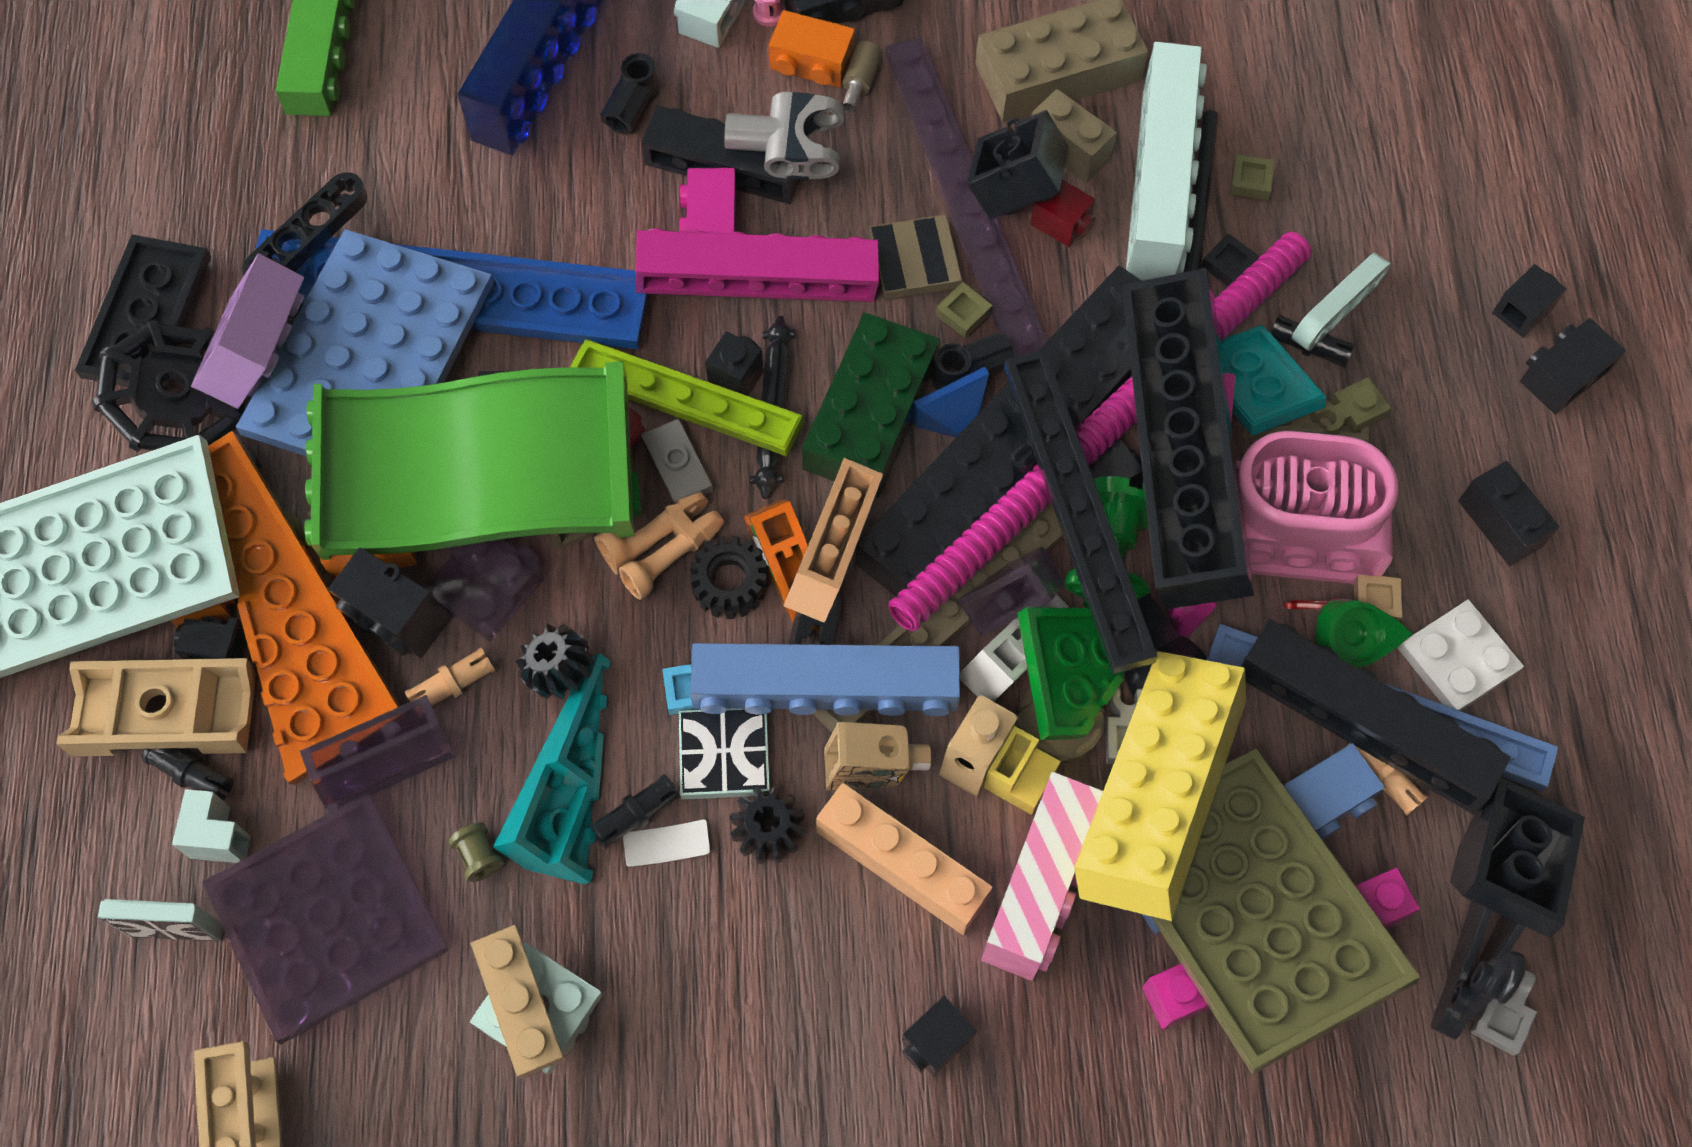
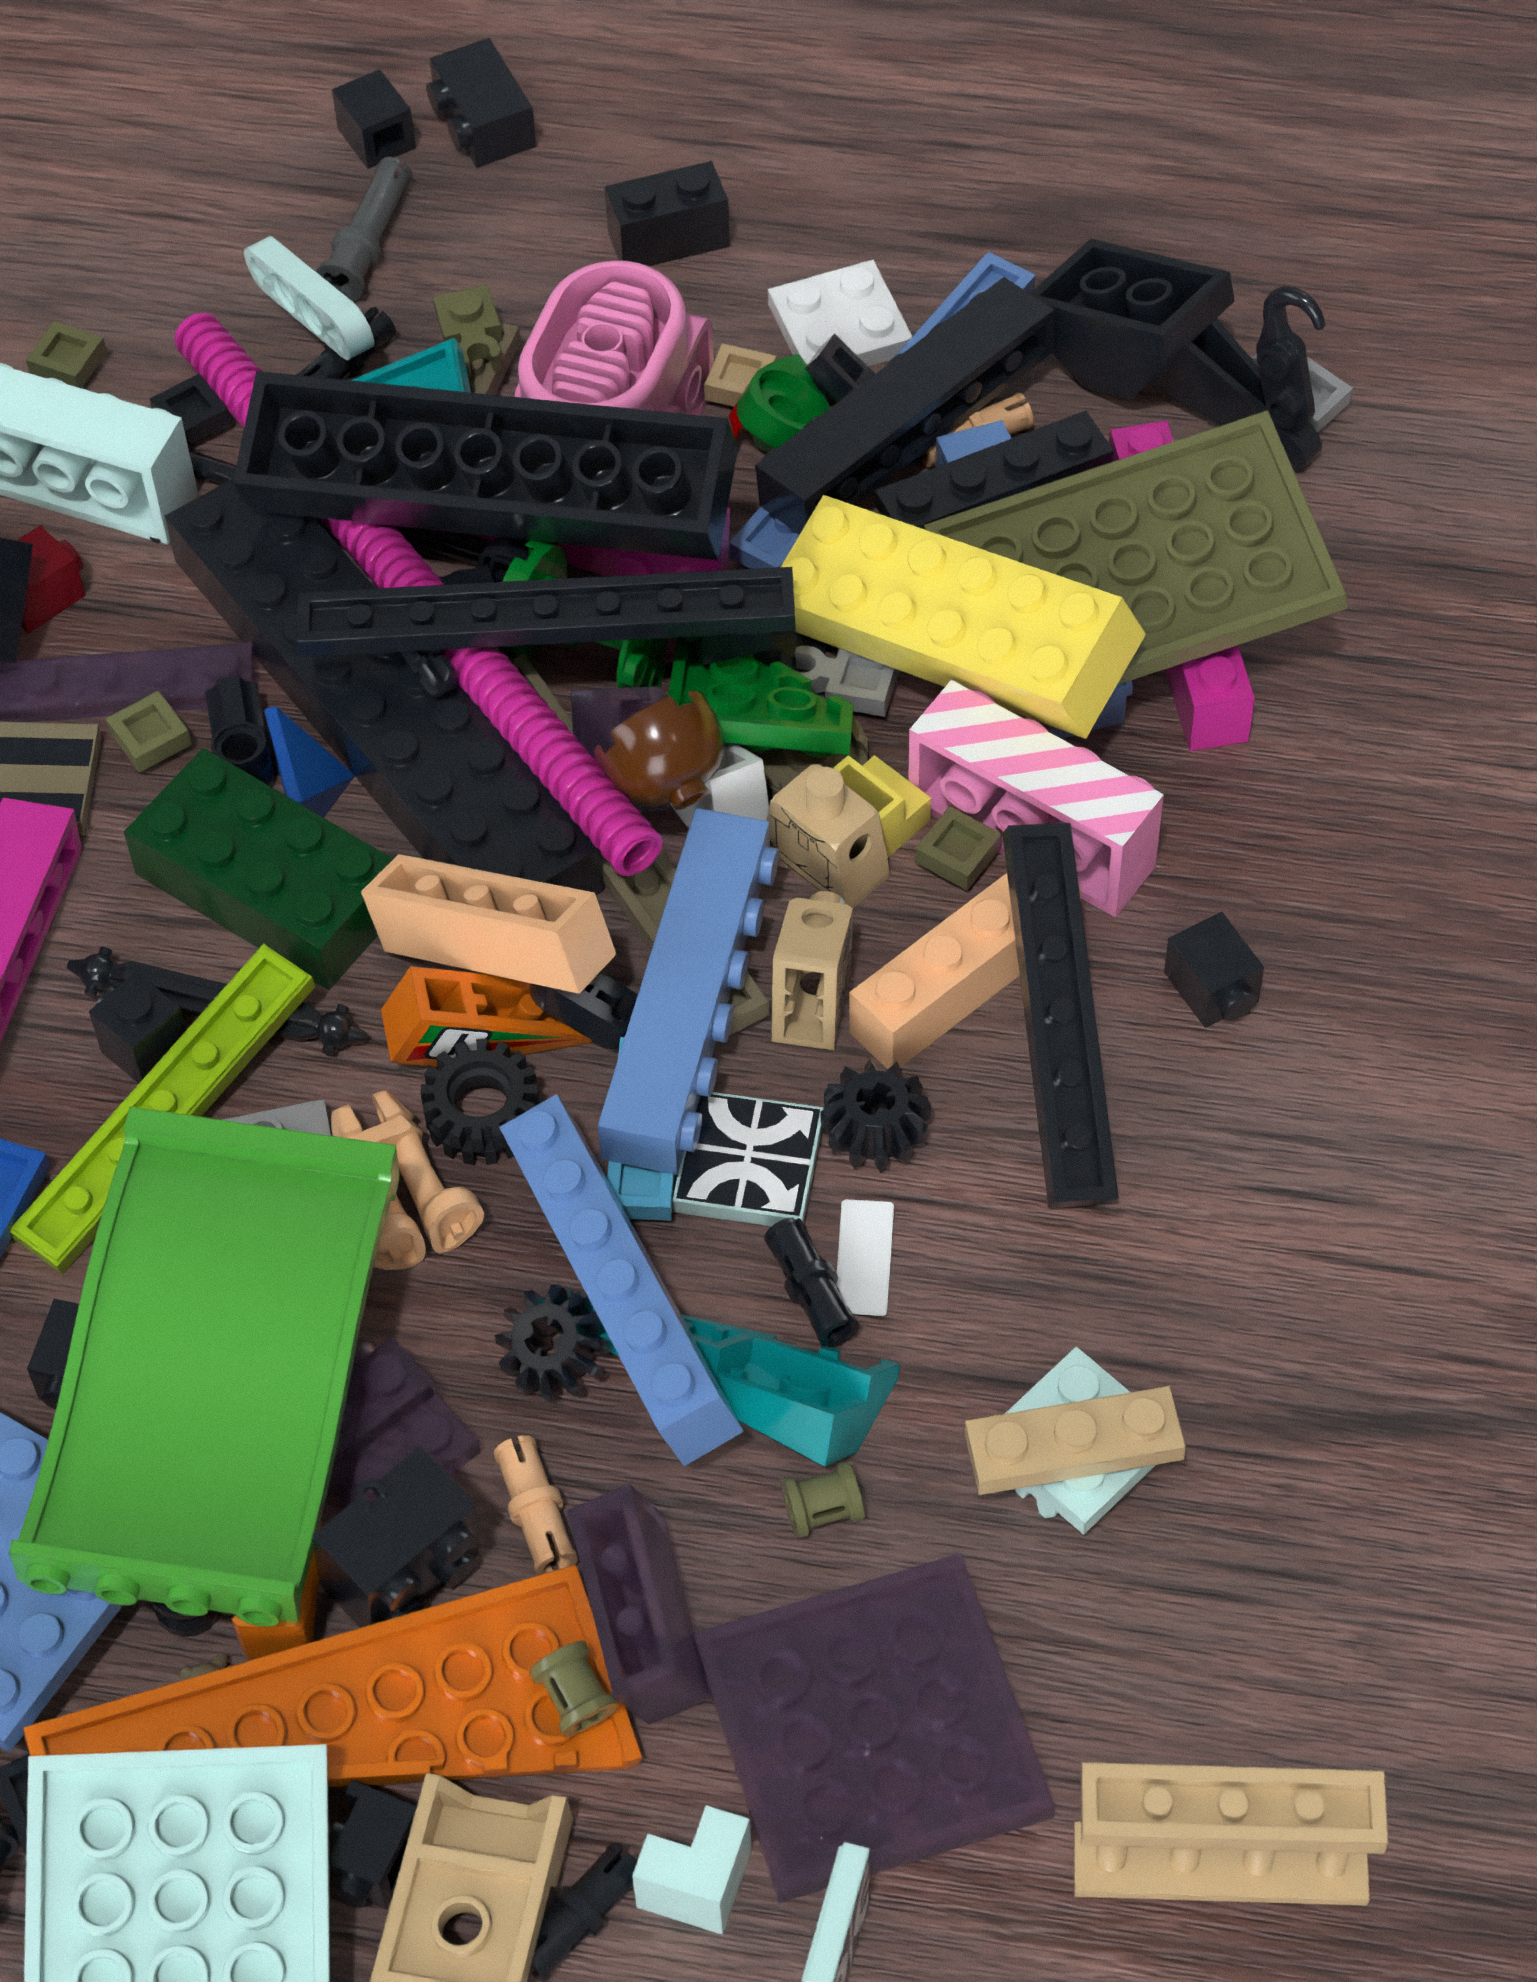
camera: 75 degrees left, 10 degrees down
(308, 727) = (573, 1688): none -> olive bush
(588, 686) = (621, 1281): none -> medium blue brick
(858, 927) = (1059, 1016): none -> black plate
(981, 614) = (665, 753): none -> reddish brown cylinder
(1002, 836) = (958, 848): none -> olive plate
(1323, 792) = (997, 472): none -> black plate
(1400, 663) = (837, 369): none -> black plate
(1409, 322) = (358, 244): none -> dark grey pin

